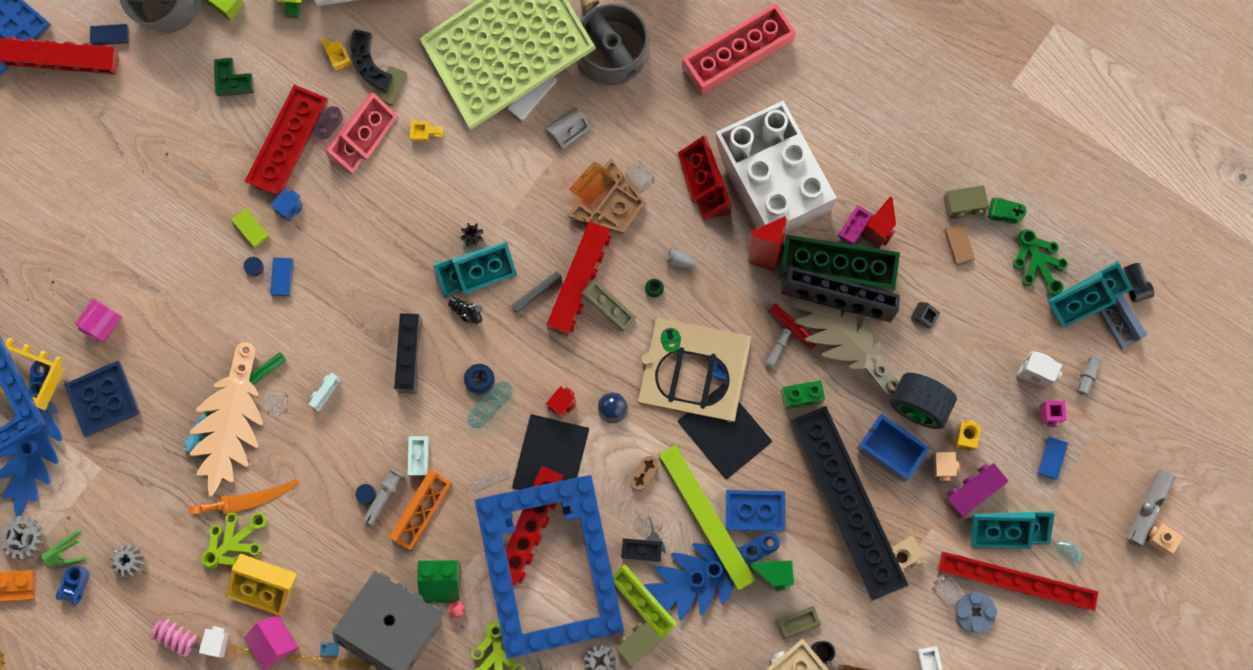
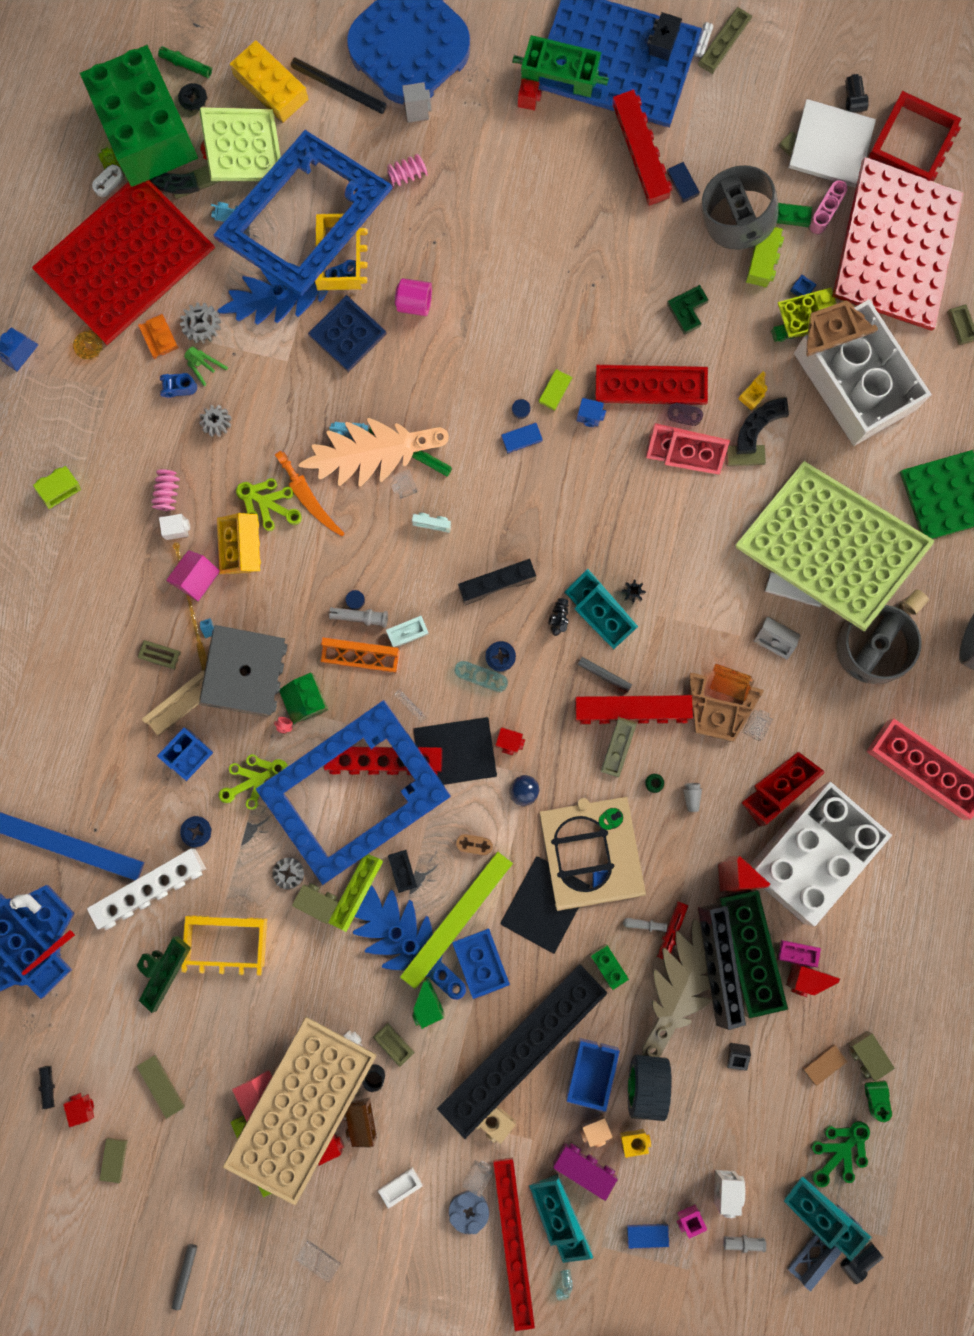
camera: 70 degrees right, 5 degrees up
(422, 131) = (714, 503): yellow plate -> none

